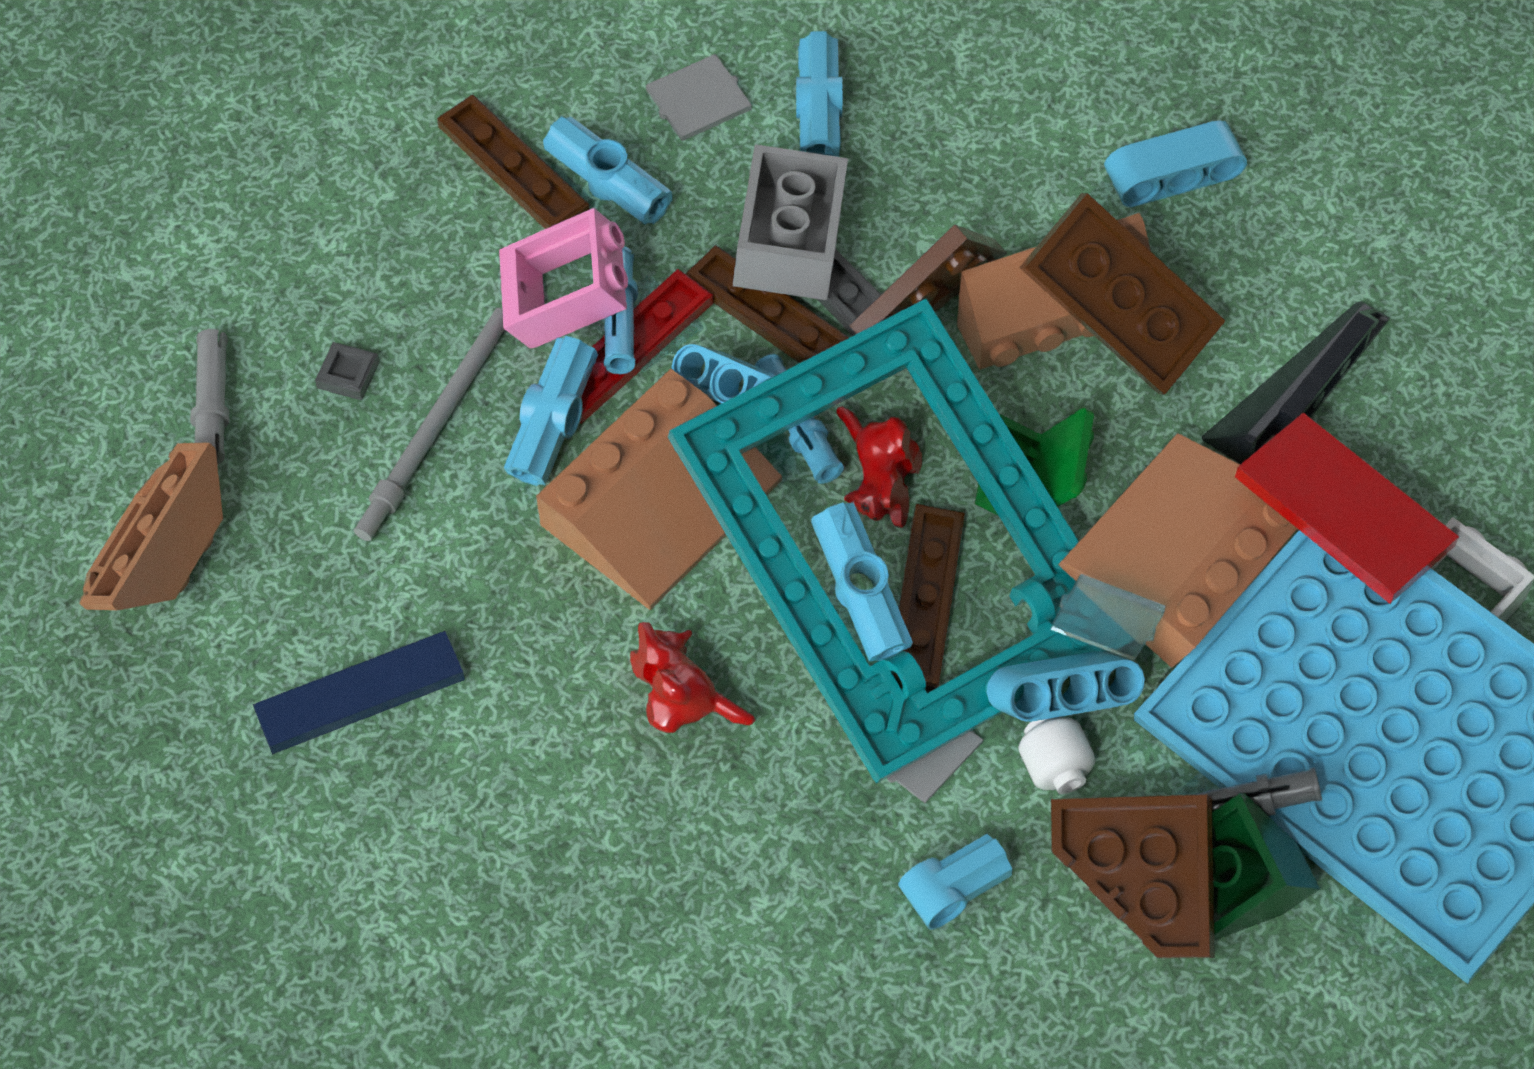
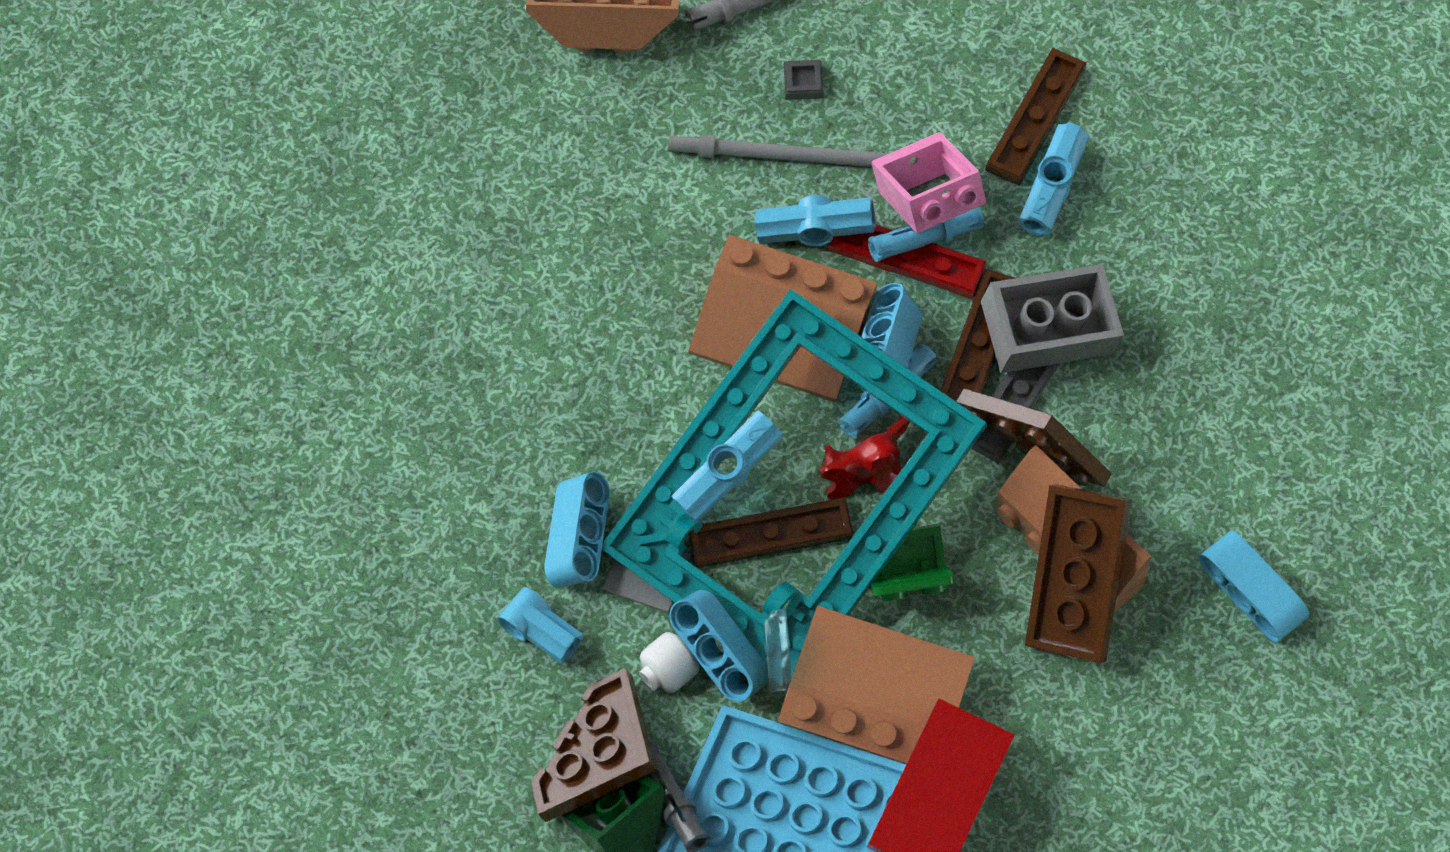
camera: 70 degrees right, 5 degrees up
(358, 692) = (545, 192): dark blue tile -> none
(680, 688) = (621, 388): red animal -> none
(698, 97) = (1163, 220): light grey piece -> none
(819, 94) = (1196, 302): medium azure piece -> none
(848, 794) = (577, 530): none -> medium azure beam
(1298, 385) = (1082, 747): black wedge -> none

